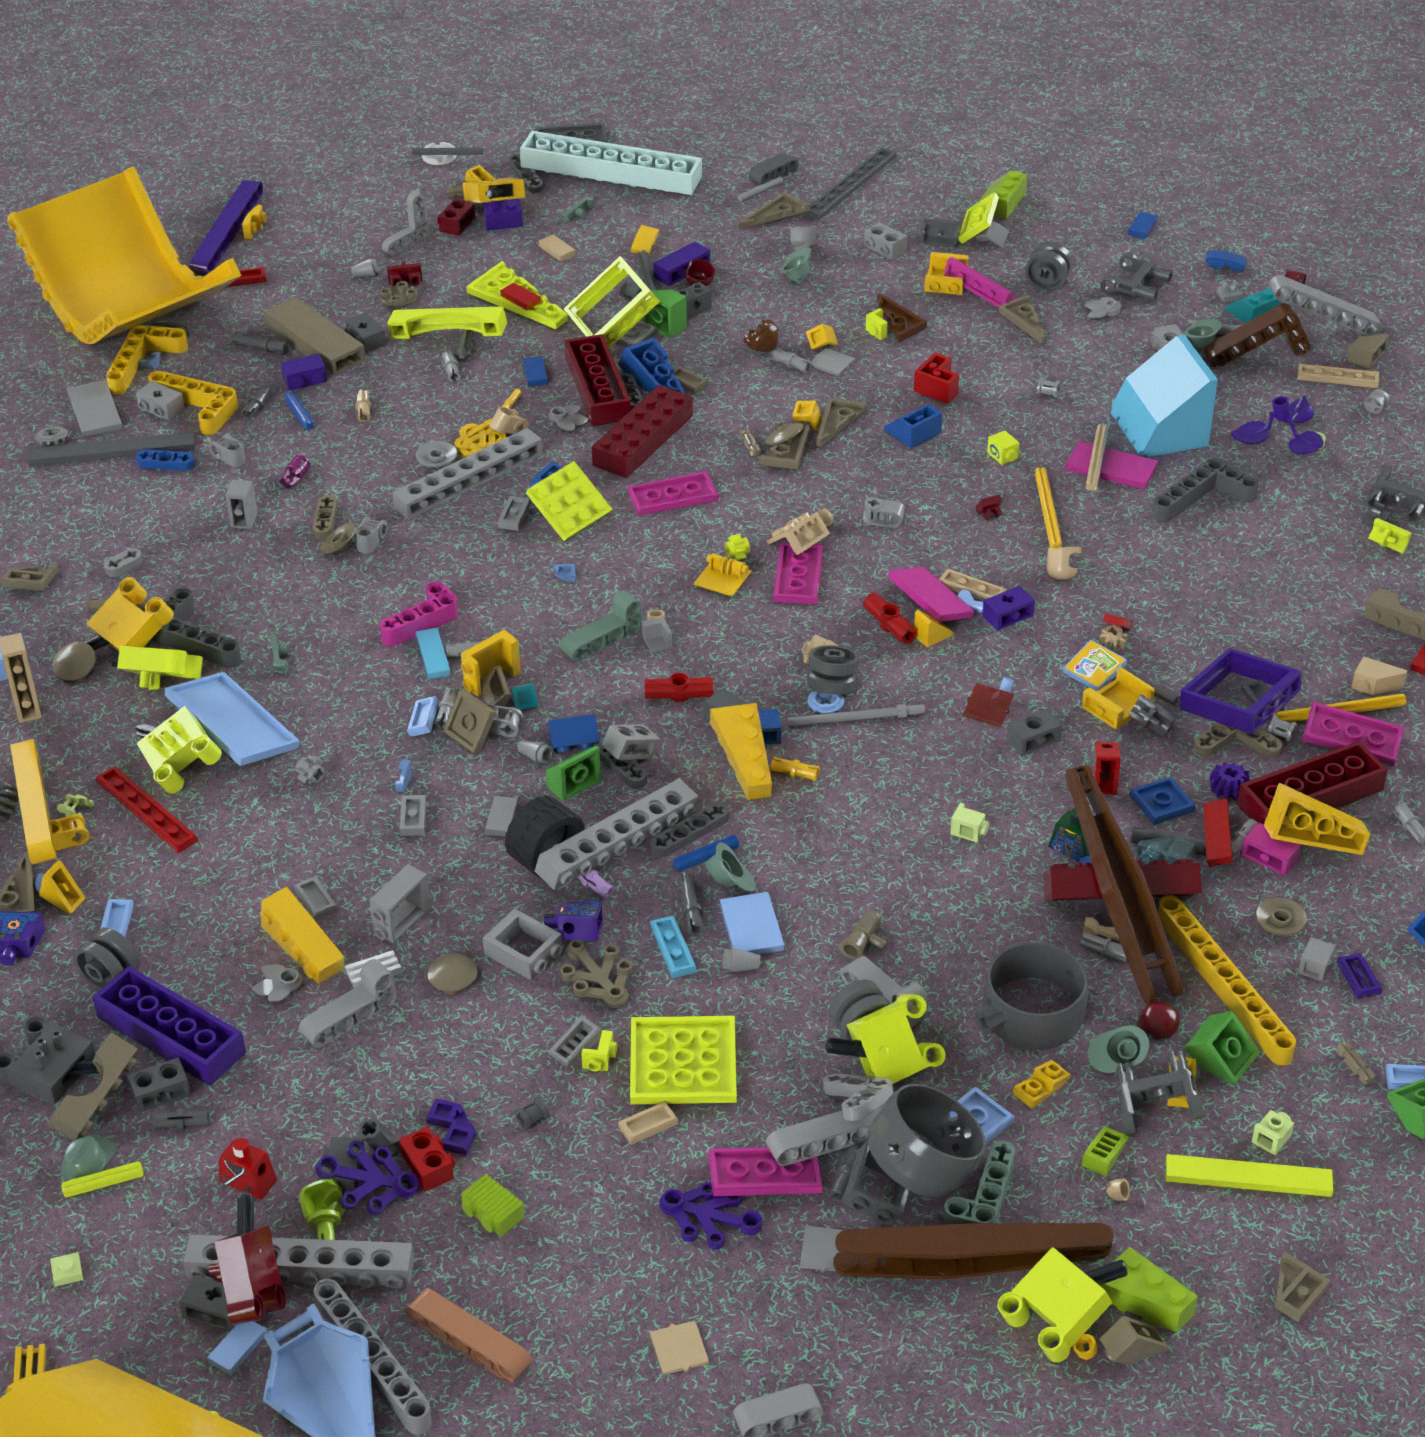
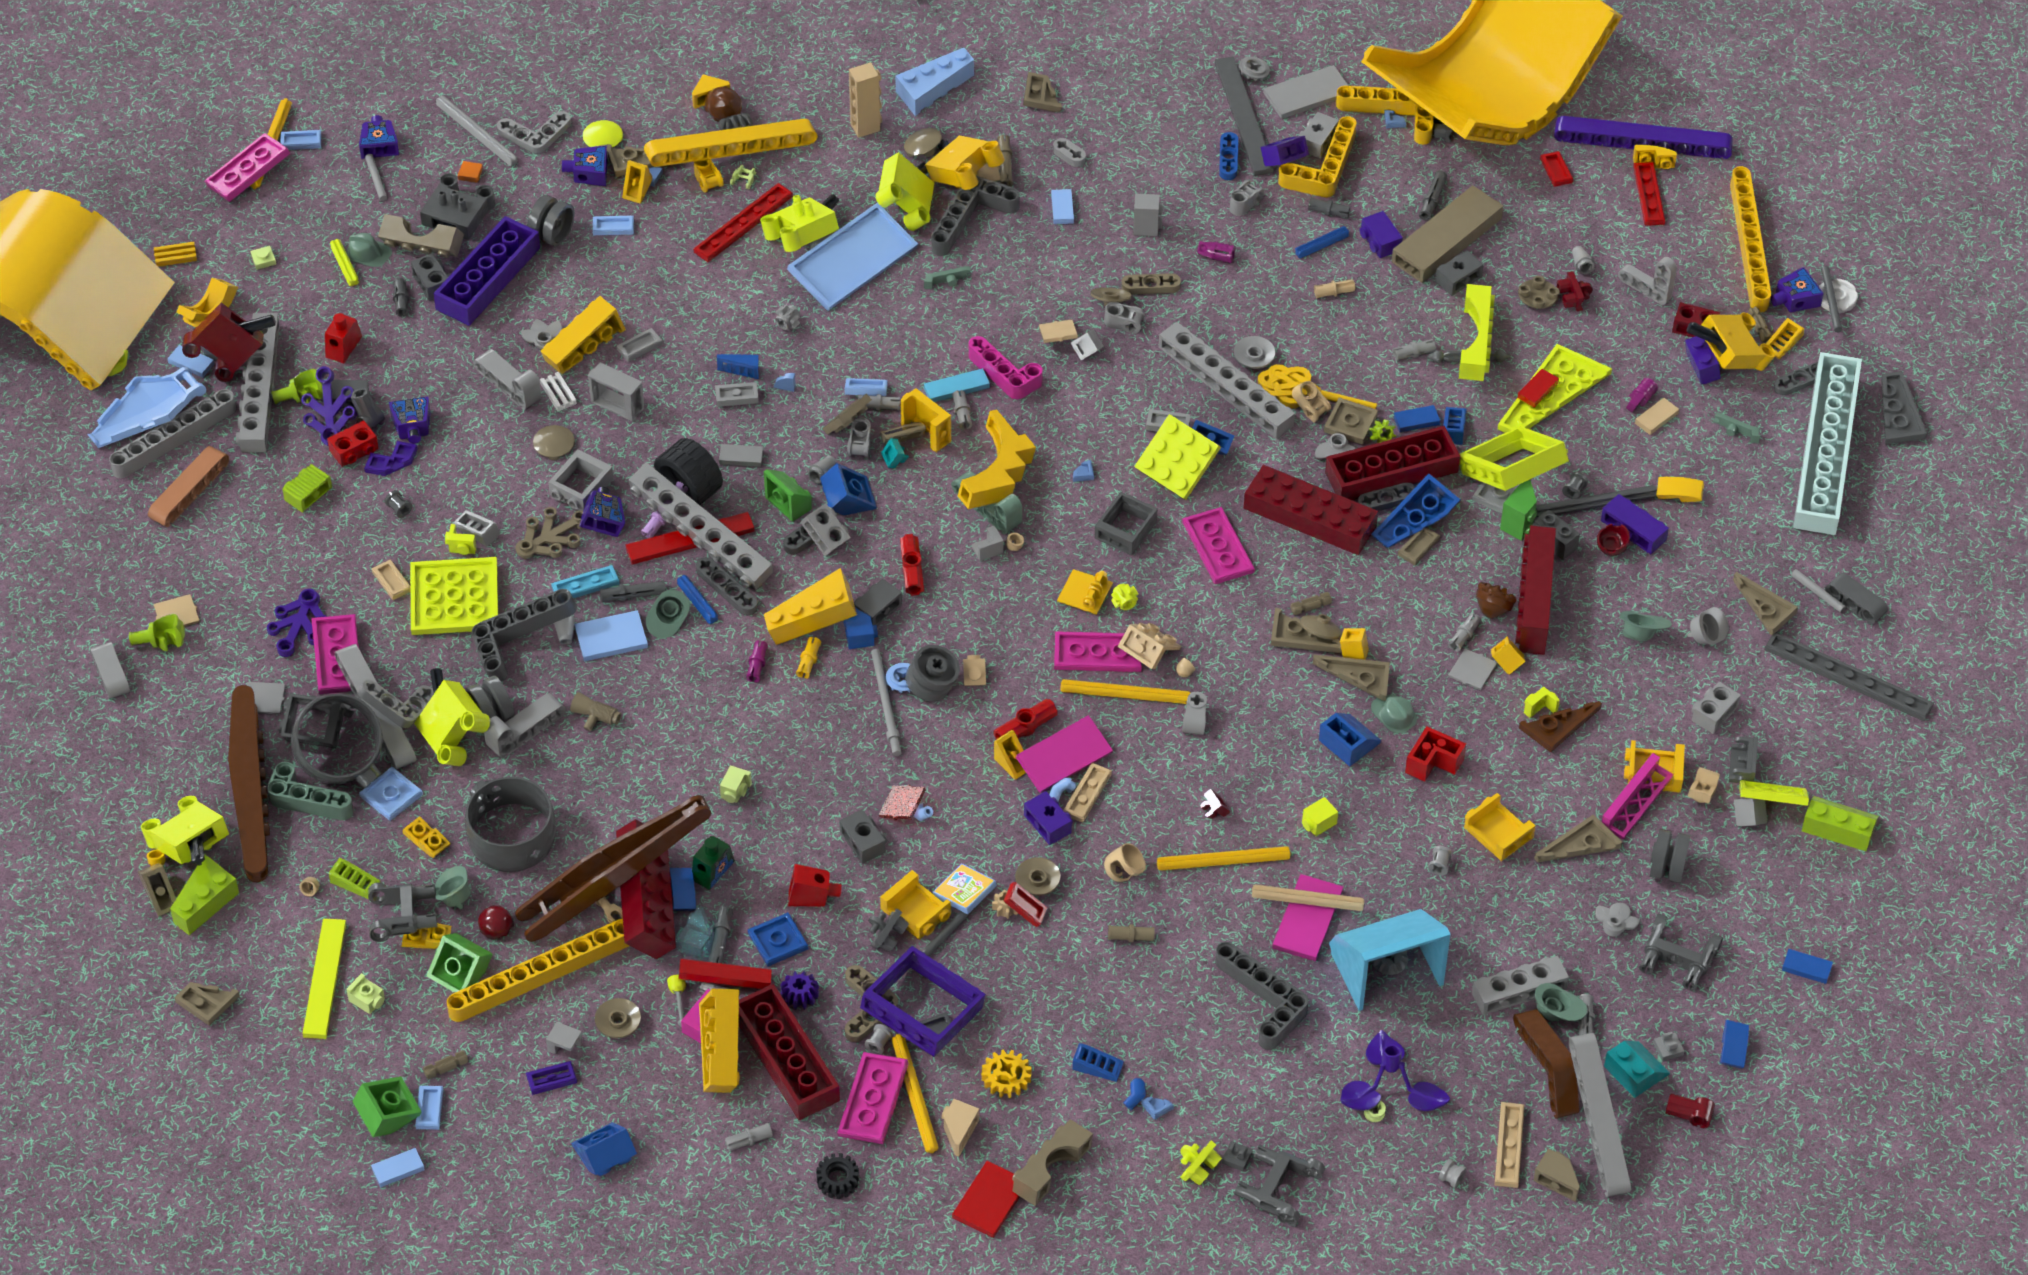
camera: 85 degrees right, 10 degrees up
(148, 1319) = (217, 292): none -> yellow arch
(181, 415) = (1284, 151): none -> dark purple brick
(198, 571) = (1062, 206): none -> light blue tile
(293, 232) = (1649, 193): none -> red tile
(365, 183) = (1750, 238): none -> yellow beam
(373, 806) = (739, 364): none -> blue slope
(377, 577) = (1058, 331): none -> tan piece
(397, 1099) = (411, 418): none -> torso
(399, 557) = (1087, 344): none -> light grey panel
(432, 166) = (1797, 292): none -> dark purple torso
(533, 250) = (1642, 394): none -> magenta hinge
(534, 404) = (1351, 420): none -> dark tan plate
(538, 609) = (1000, 477): none -> yellow arch
(550, 350) = (1455, 429): none -> blue slope
(554, 385) = (1377, 430): none -> lime gear
(620, 871) = (676, 542): none -> red tile
(664, 543) = (1117, 538): none -> dark grey window
(723, 1352) = (161, 632): none -> lime piece
(745, 307) = (1535, 590): none -> dark red brick
(745, 994) = (517, 623): none -> dark grey beam
(797, 807) = (756, 661): none -> magenta pin
(849, 558) = (1124, 691): none -> yellow axle
(881, 403) = (1394, 713): none -> sand green piece
(974, 253) = (1704, 785): none -> tan bracket
(1014, 356) = (1498, 827): none -> yellow panel
(1079, 617) = (1040, 869): none -> dark tan dish
(1139, 564) = (1131, 933): none -> dark tan pin
(1230, 873) = (677, 986): none -> neon yellow hinge
(1287, 595) = (1095, 1070): none -> blue slope
(1312, 646) = (1006, 1073): none -> yellow gear
(1319, 568) = (1138, 1092): none -> blue arm
(1330, 561) = (1156, 1107): none -> medium blue tile

